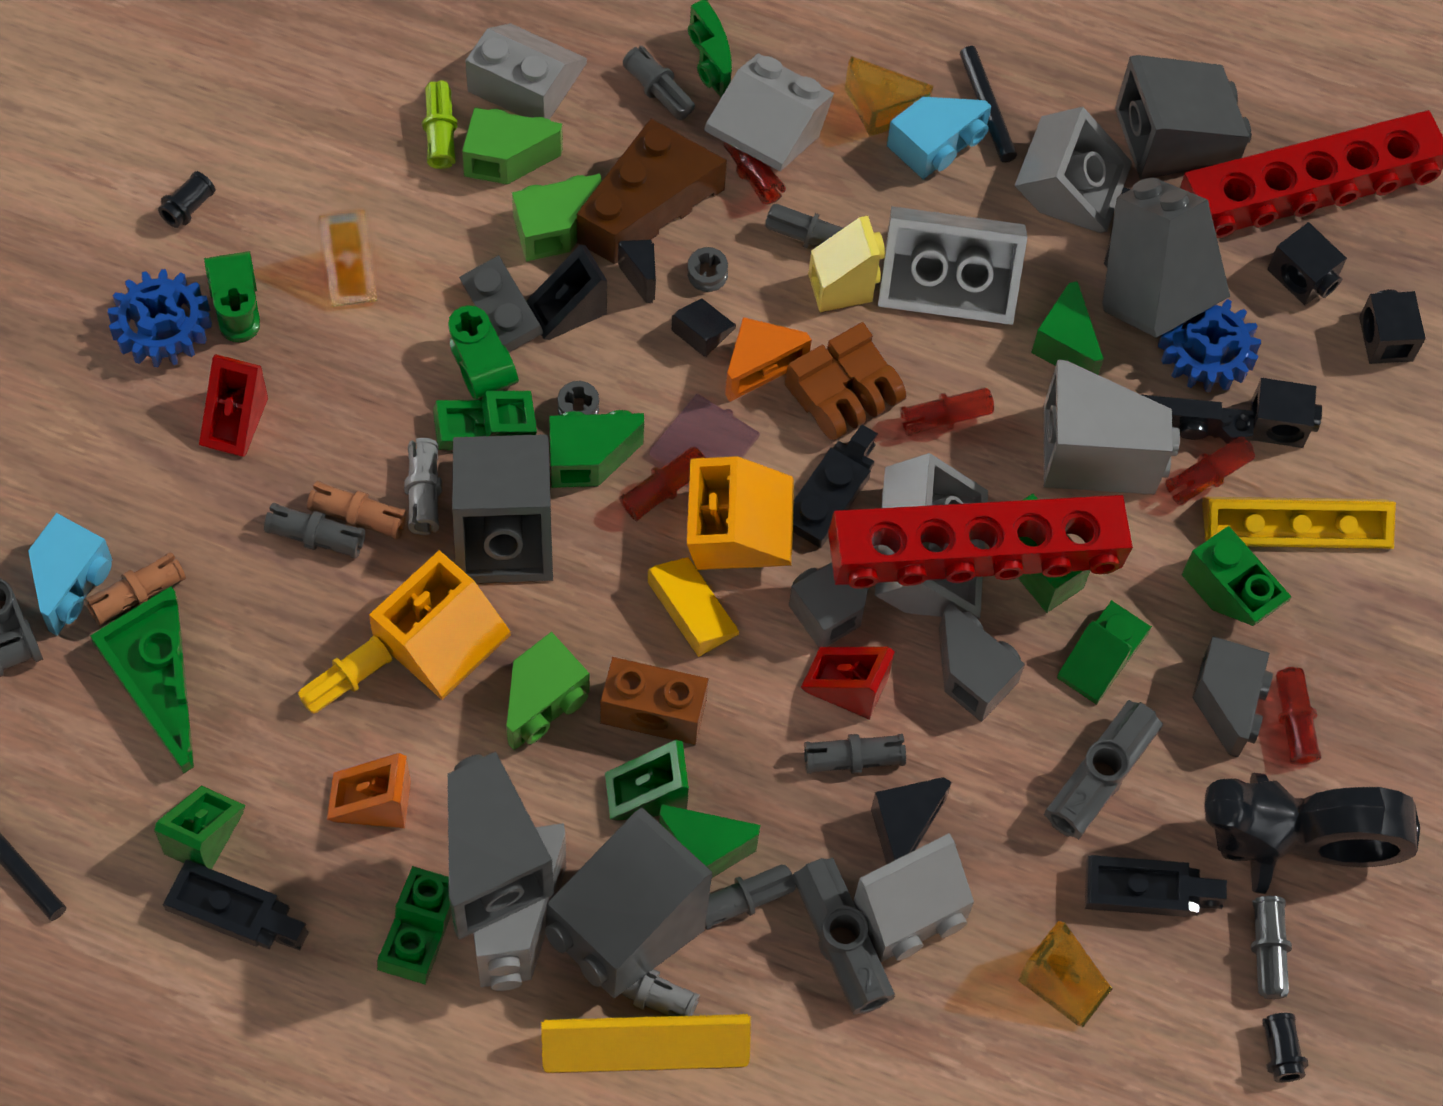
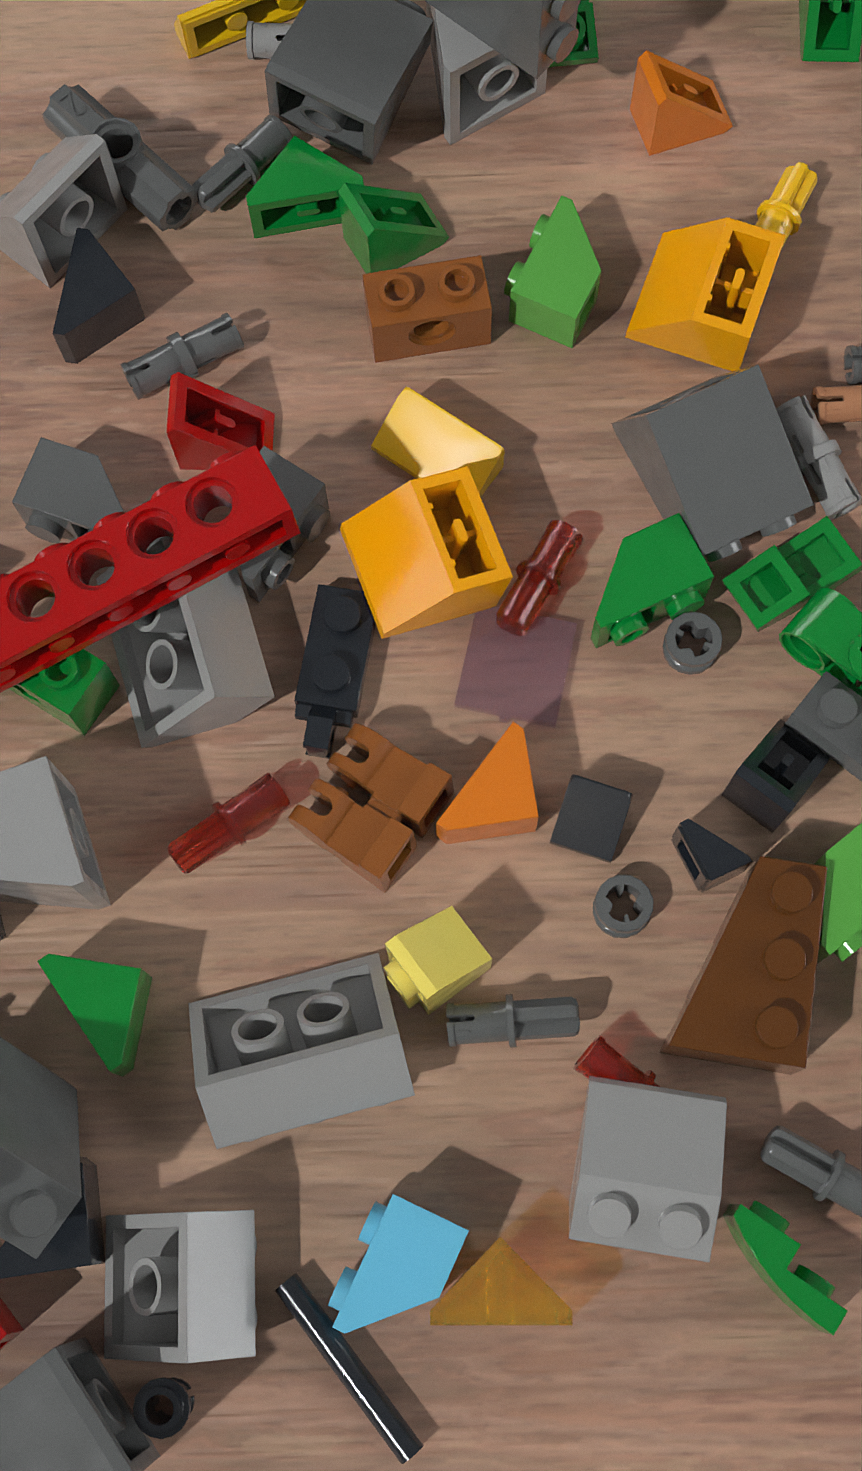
camera: 165 degrees right, 10 degrees up
(1105, 109) = (159, 1424): none -> black pin

